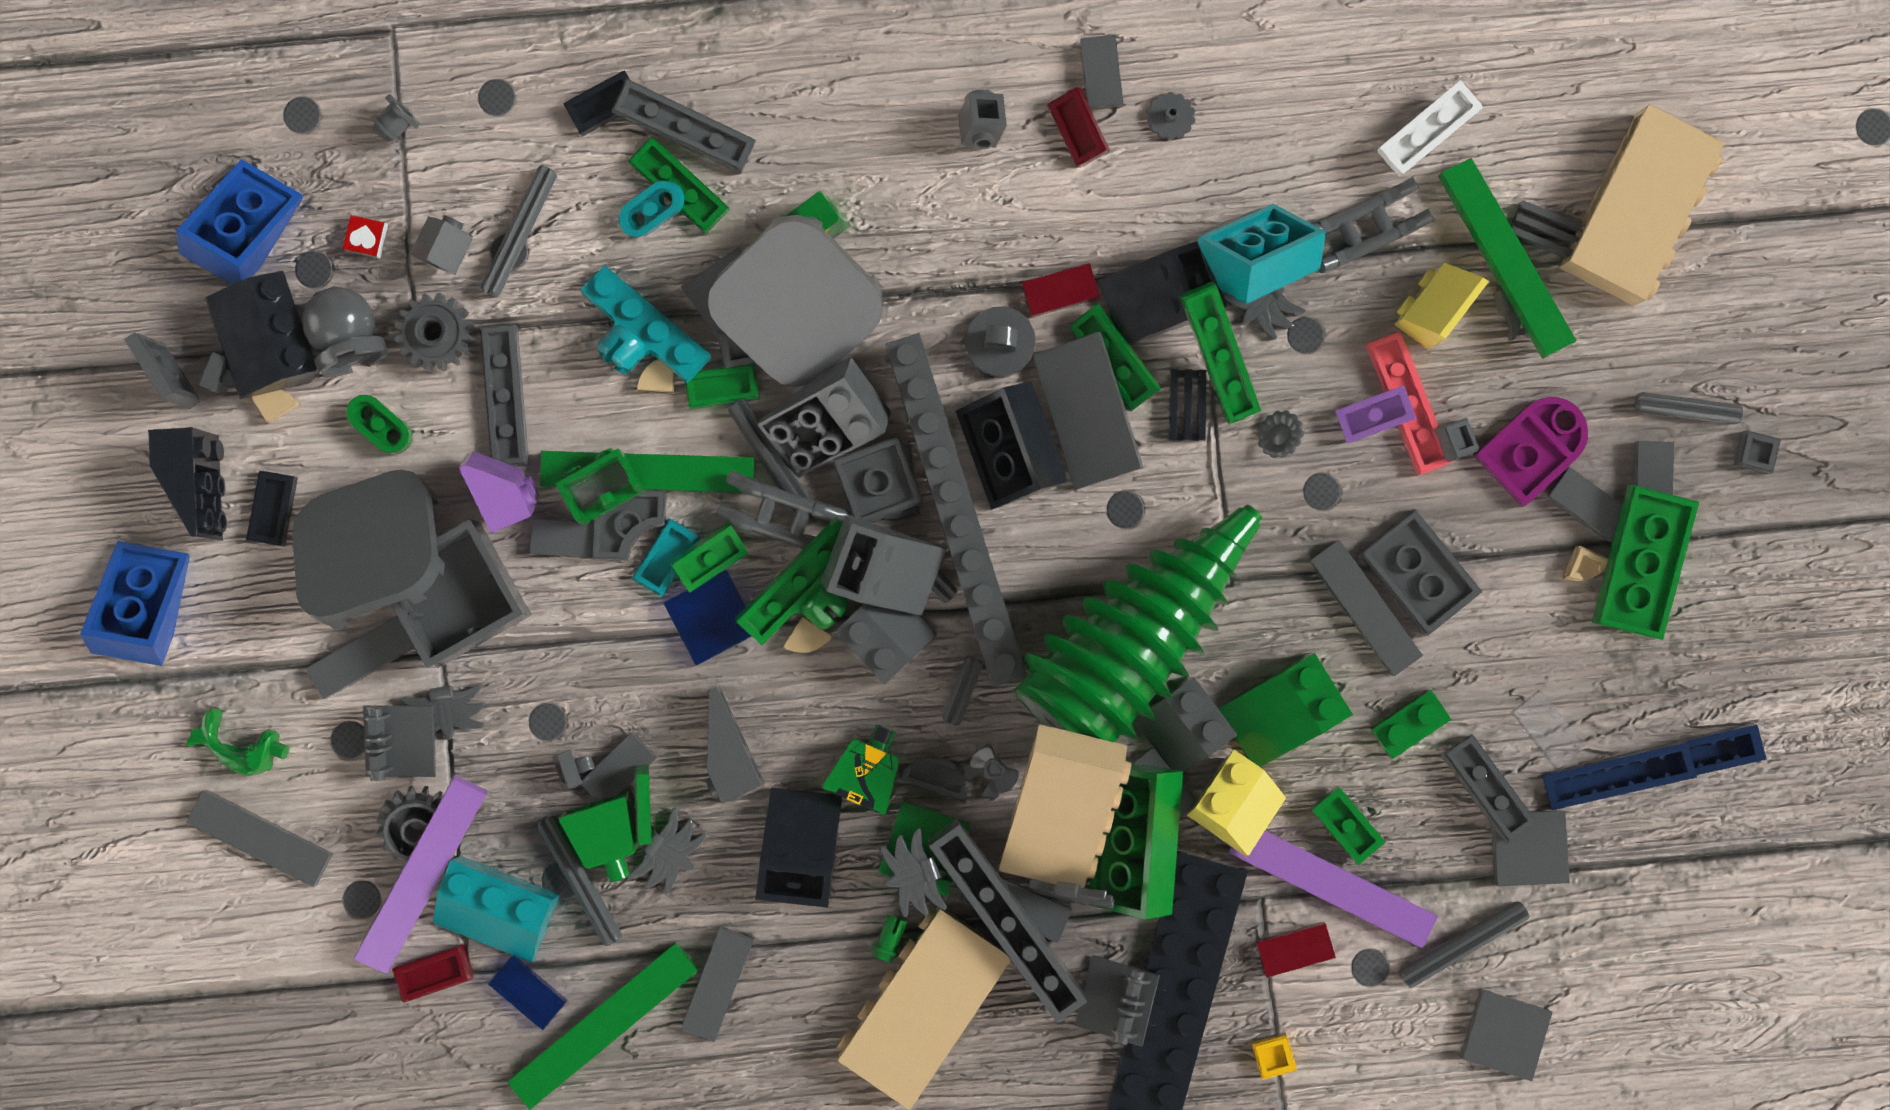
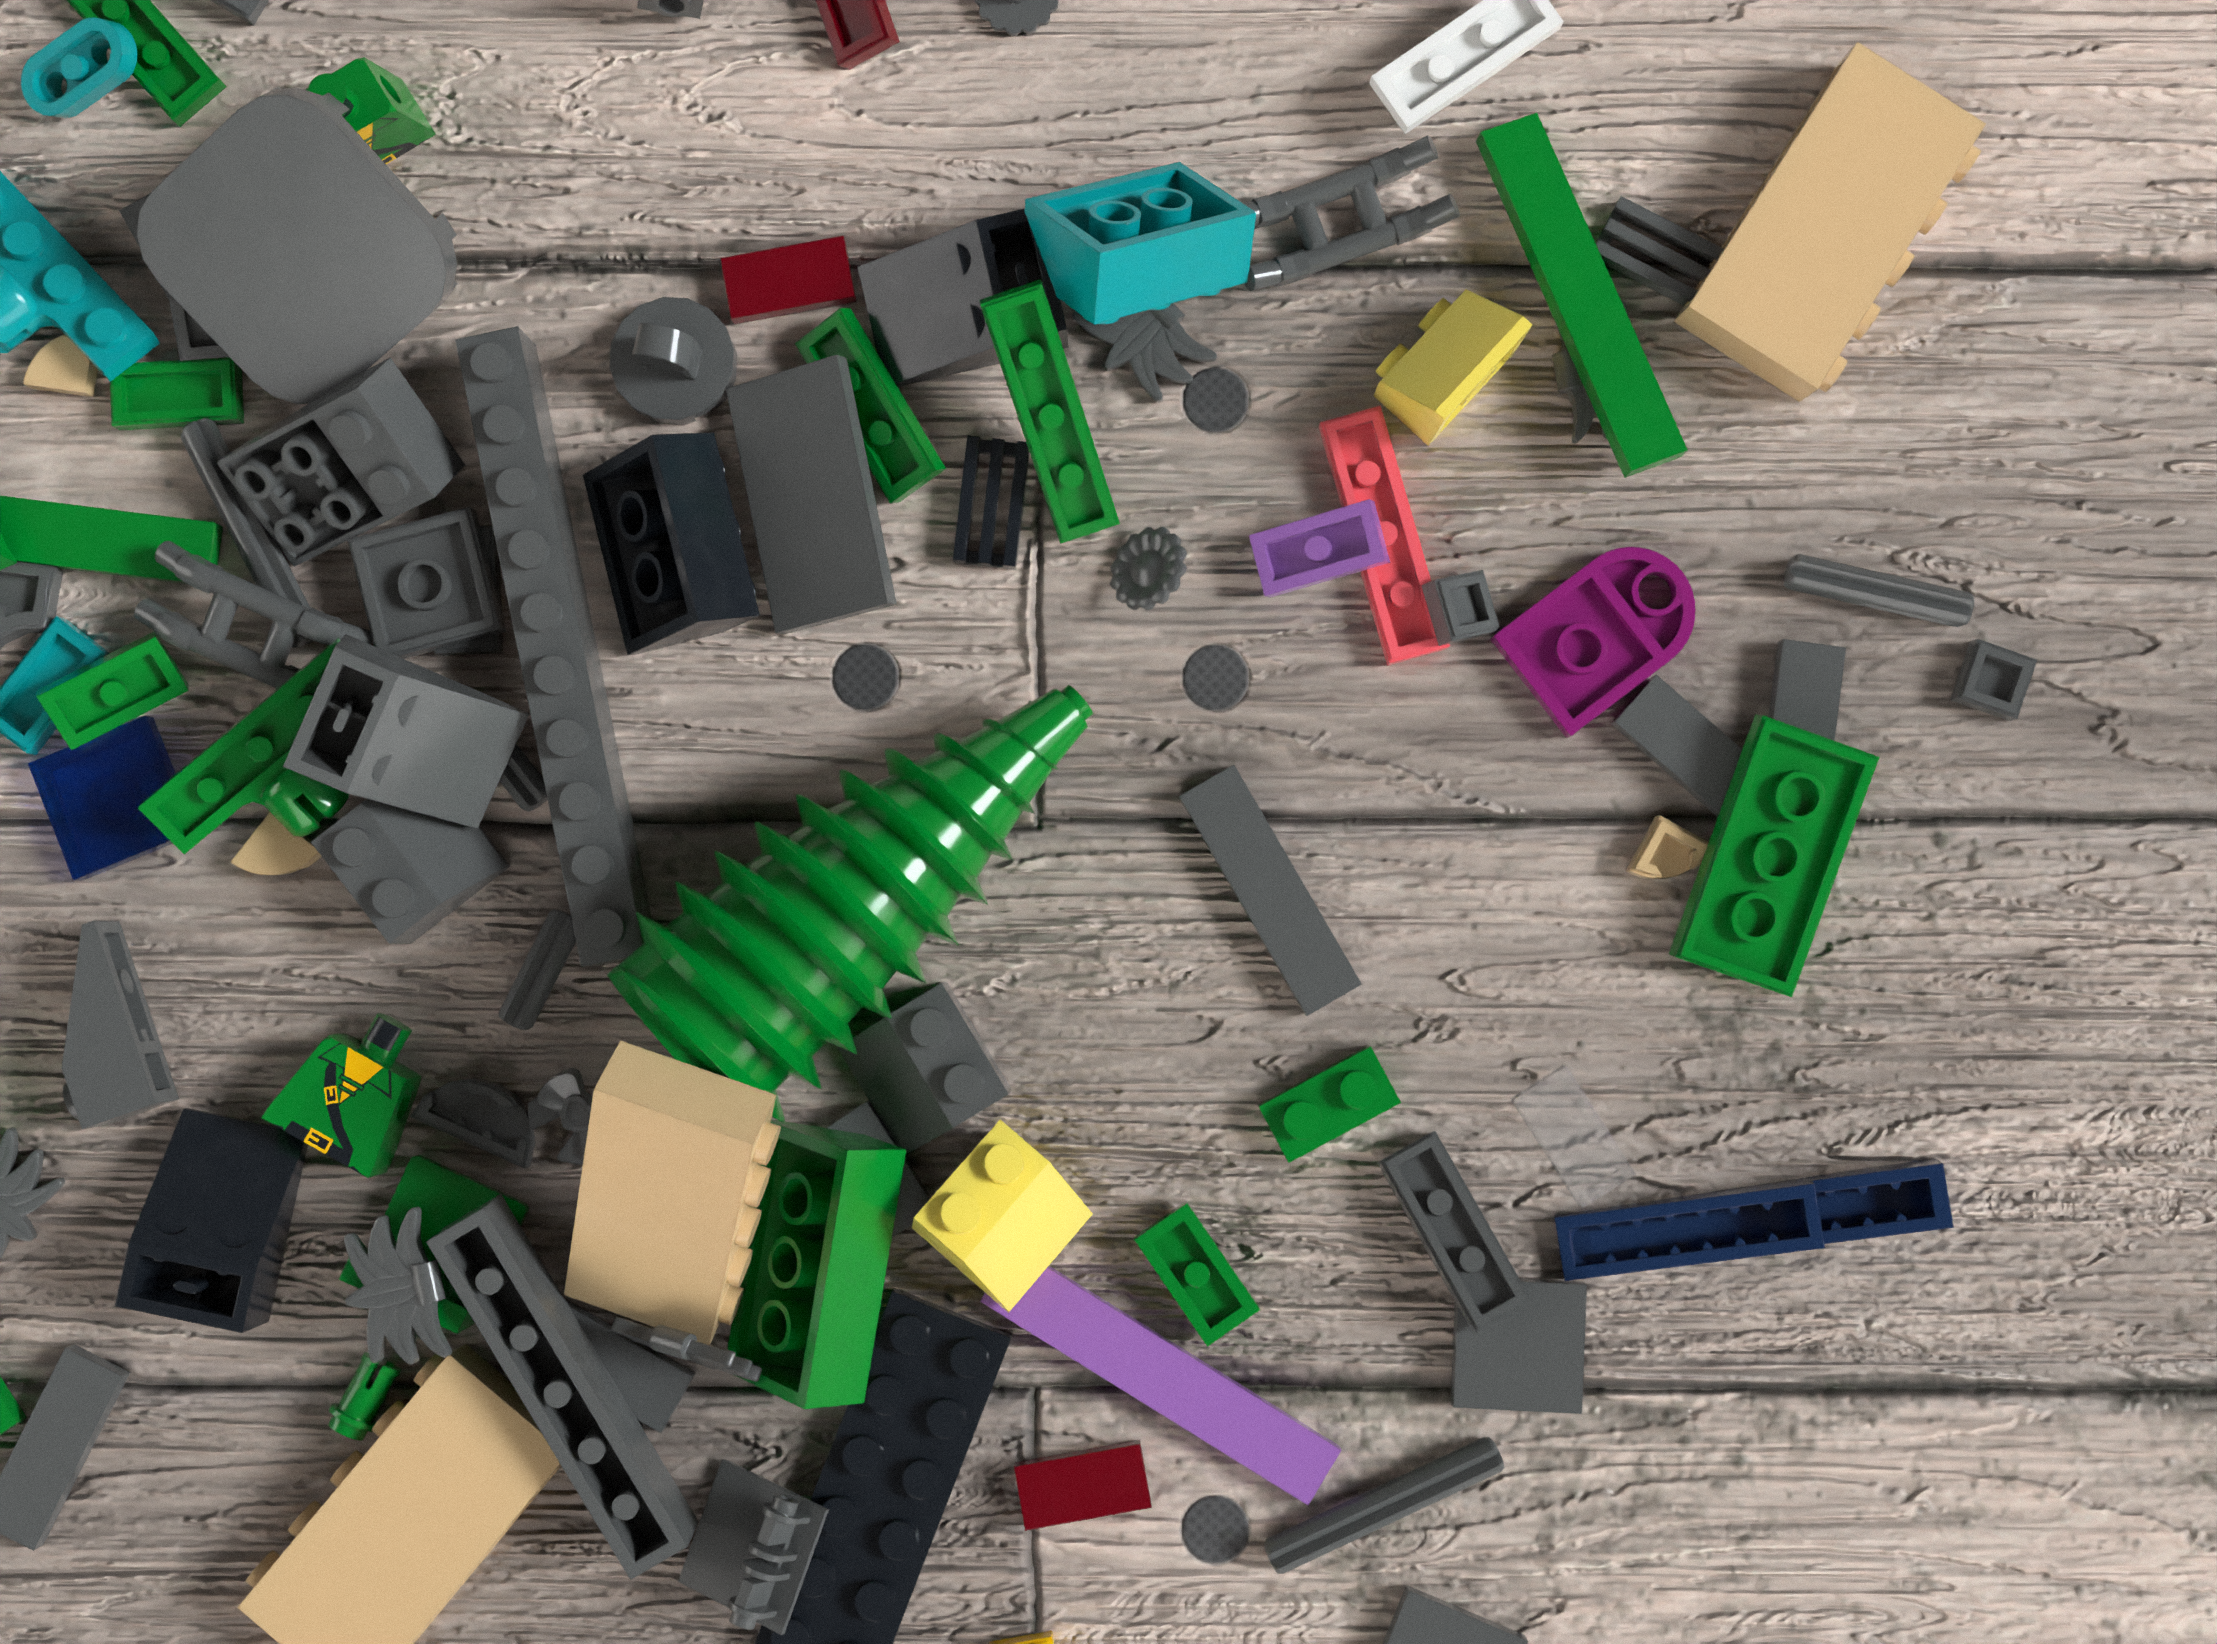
camera: 10 degrees right, 0 degrees up
(1285, 710) = (1104, 1059): green slope -> none
(1420, 572) = (1373, 836): dark grey tile -> none

